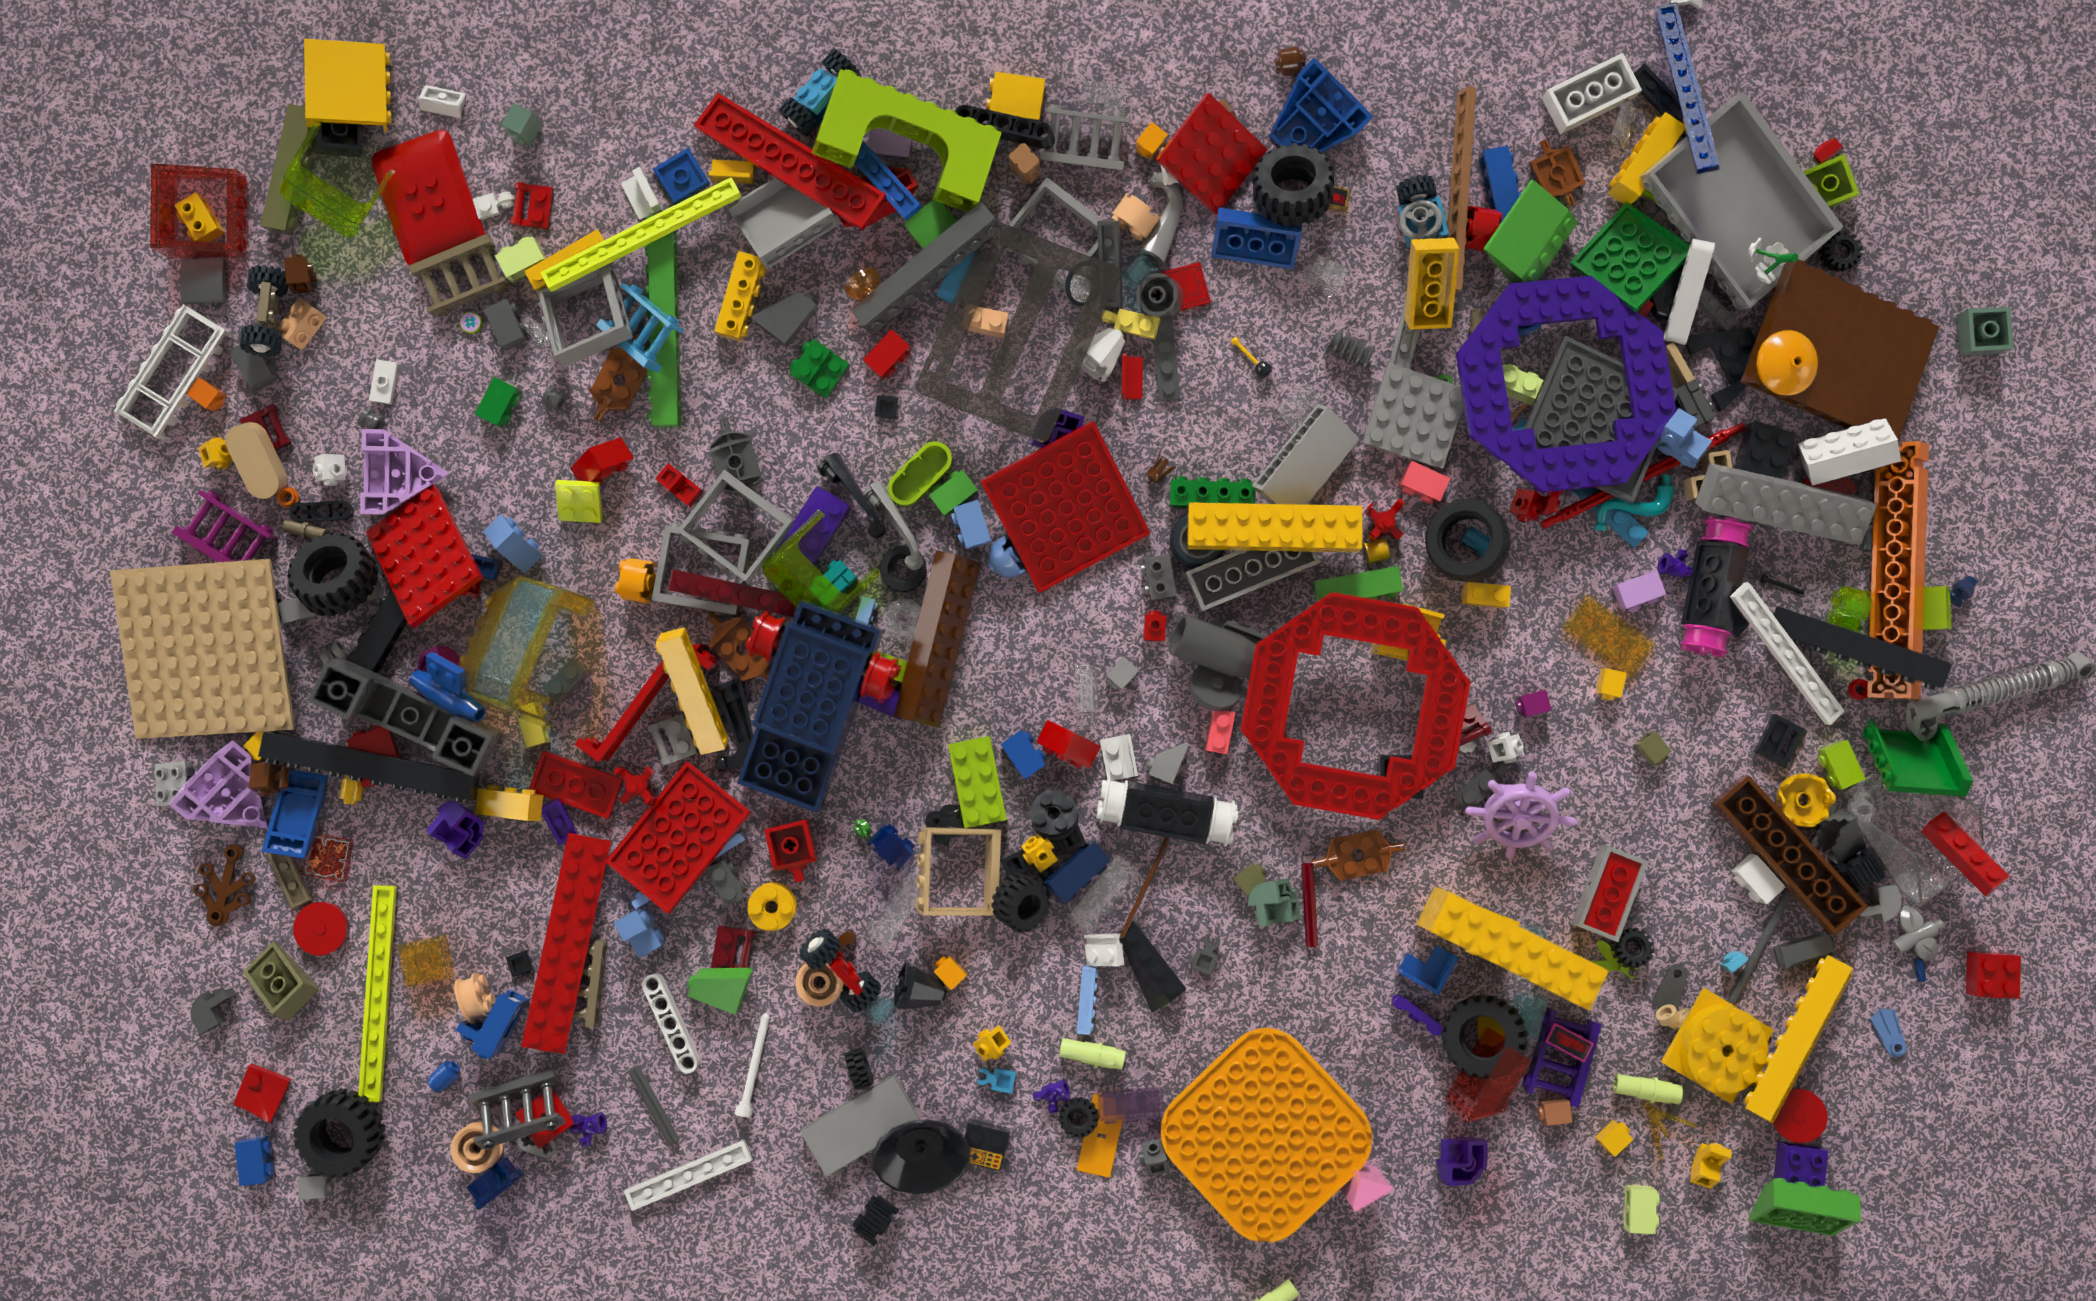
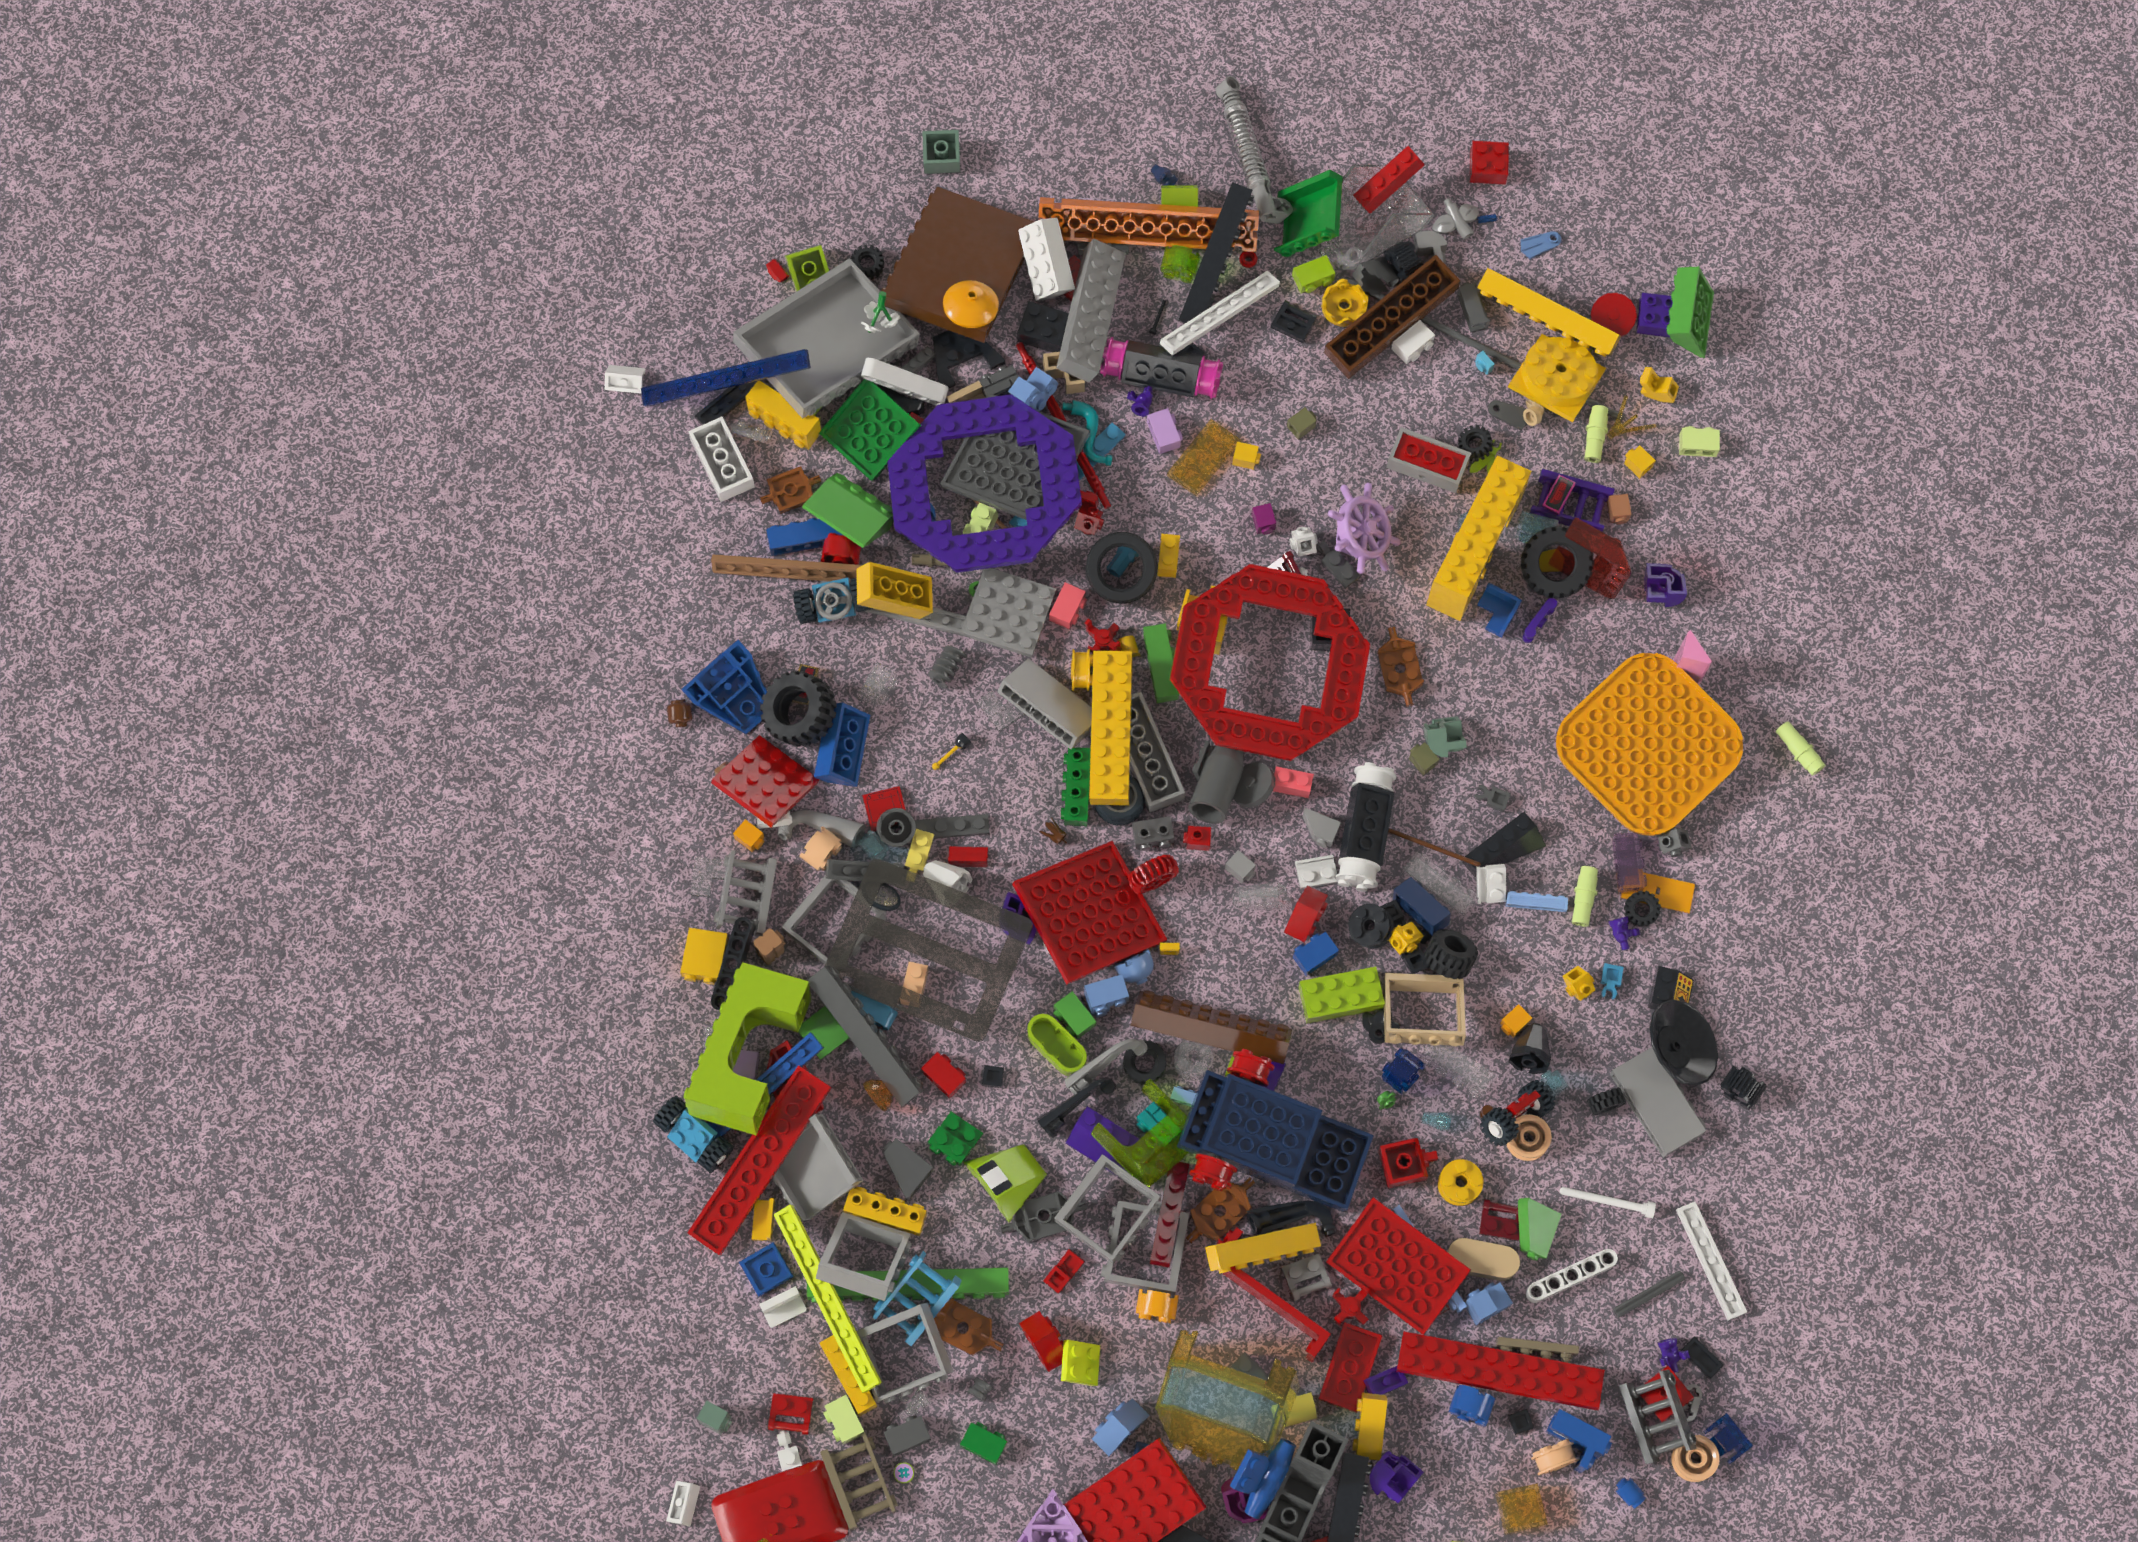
camera: 90 degrees left, 15 degrees down
(531, 911) = (1471, 1404): none -> blue brick
(585, 1159) = (1702, 1358): none -> black tile
(660, 228) = (856, 1281): none -> light grey window
(688, 929) = (1486, 1258): none -> tan plant
(727, 882) = (1440, 1222): dark grey brick -> none
(776, 423) = (1008, 1177): none -> lime wedge
(840, 884) = (1437, 1120): none -> clear light blue cone
(1028, 595) = (1169, 948): none -> yellow tile
(1109, 576) = (1153, 874): none -> red gear
(1309, 904) = (1444, 709): dark red axle -> none
(1346, 495) = (1080, 669): none -> yellow wheel

